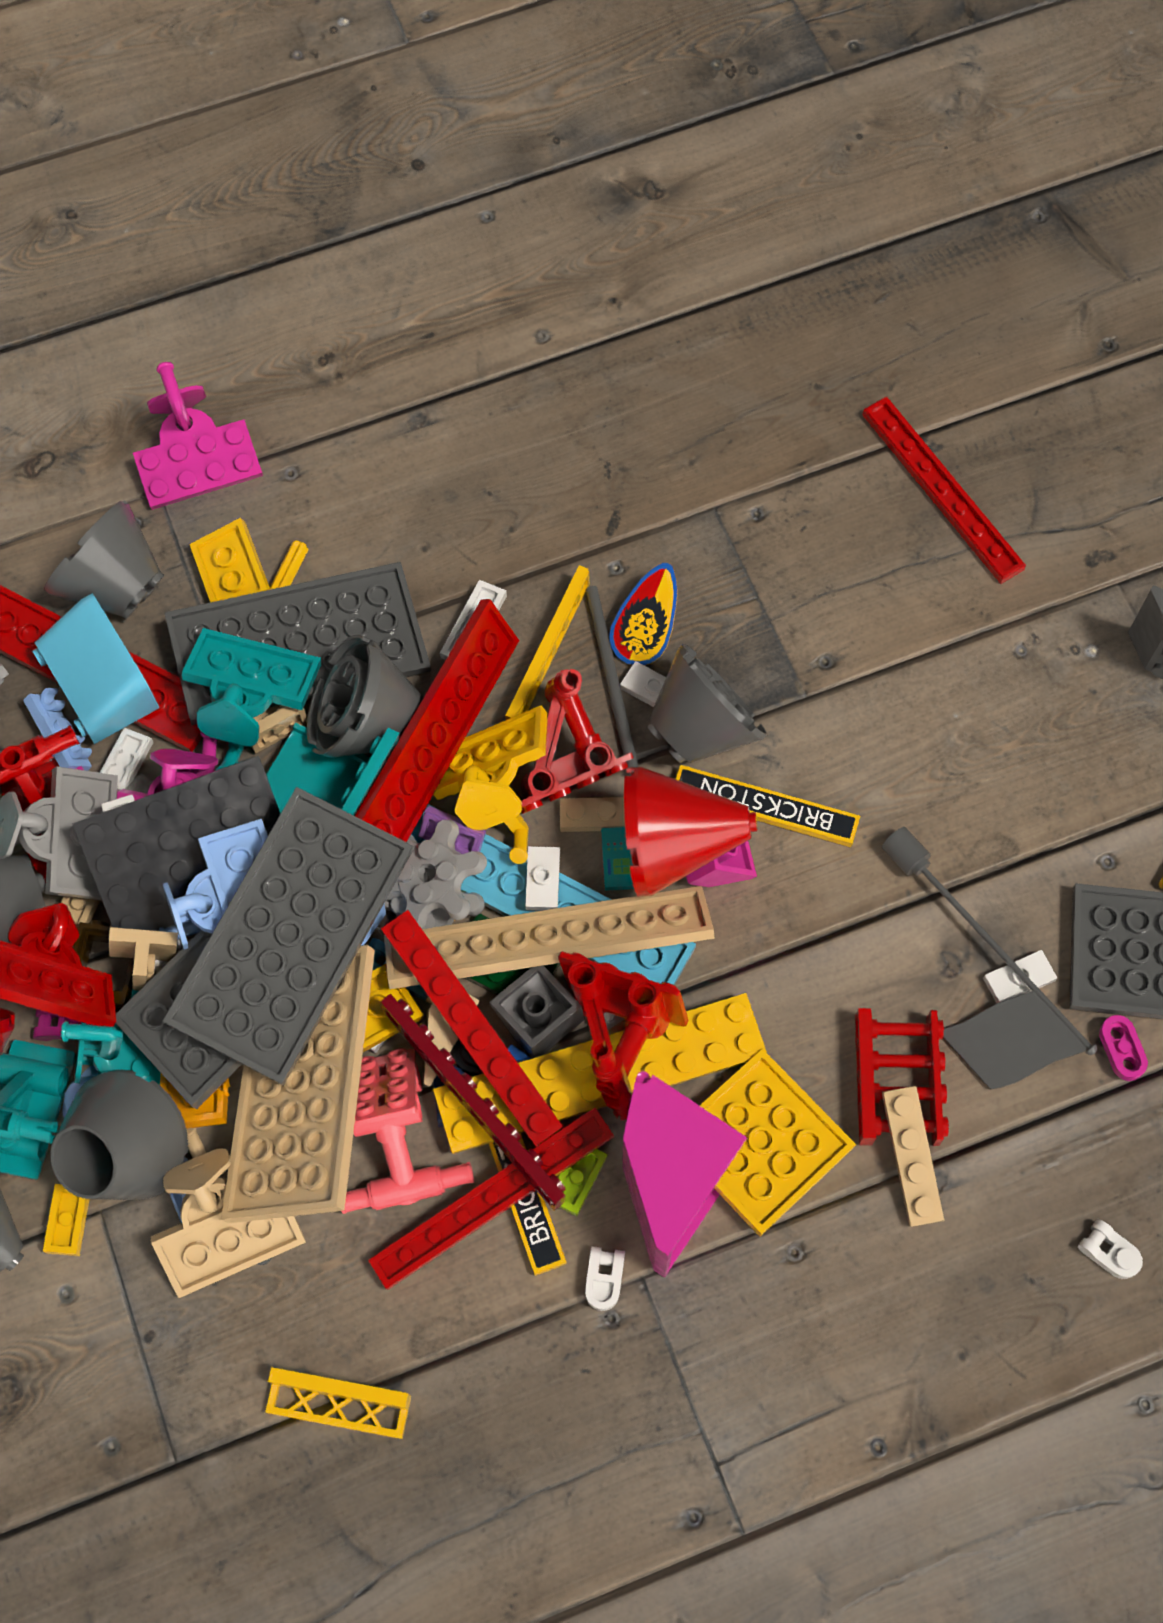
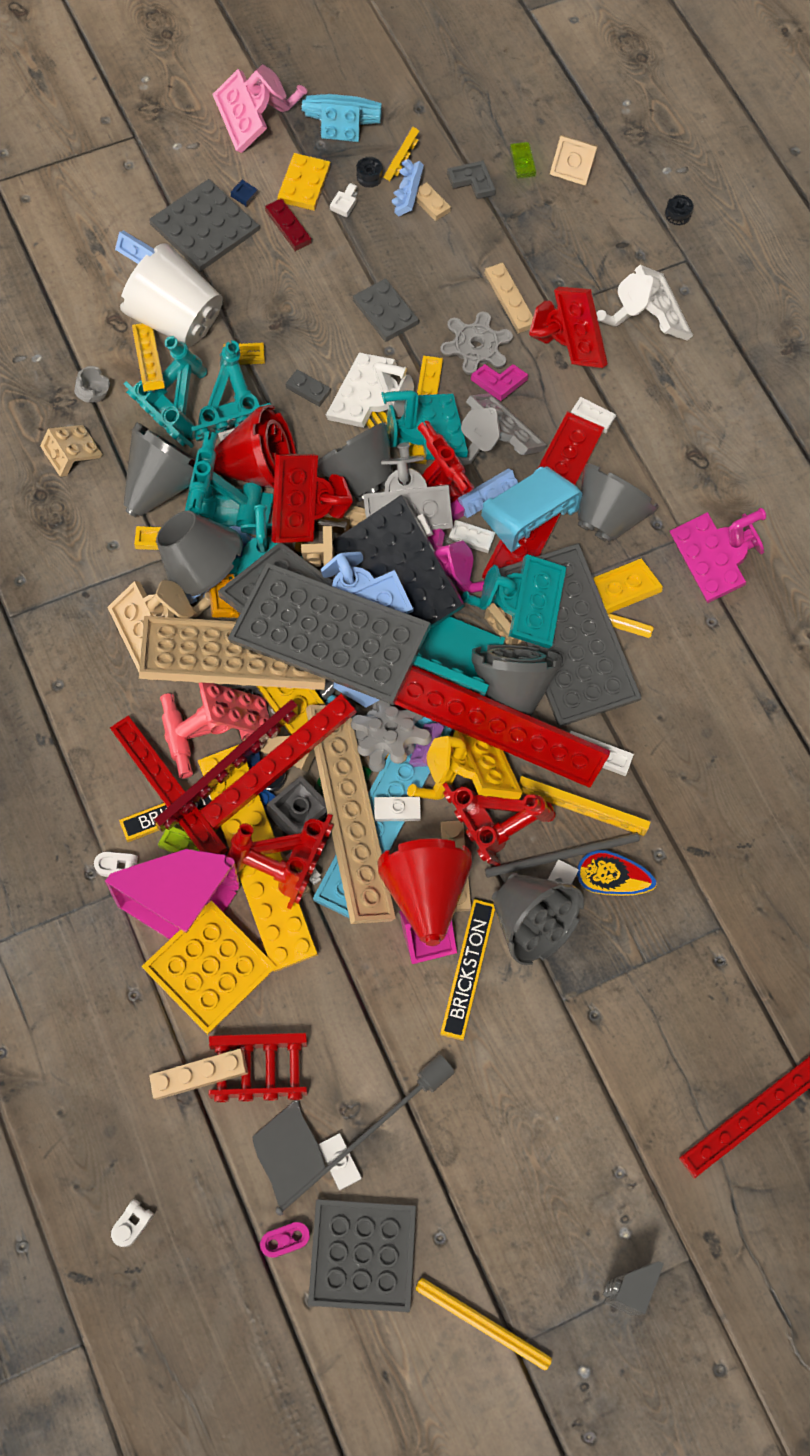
camera: 80 degrees right, 0 degrees up
(341, 1389) = (45, 707): yellow fence -> none

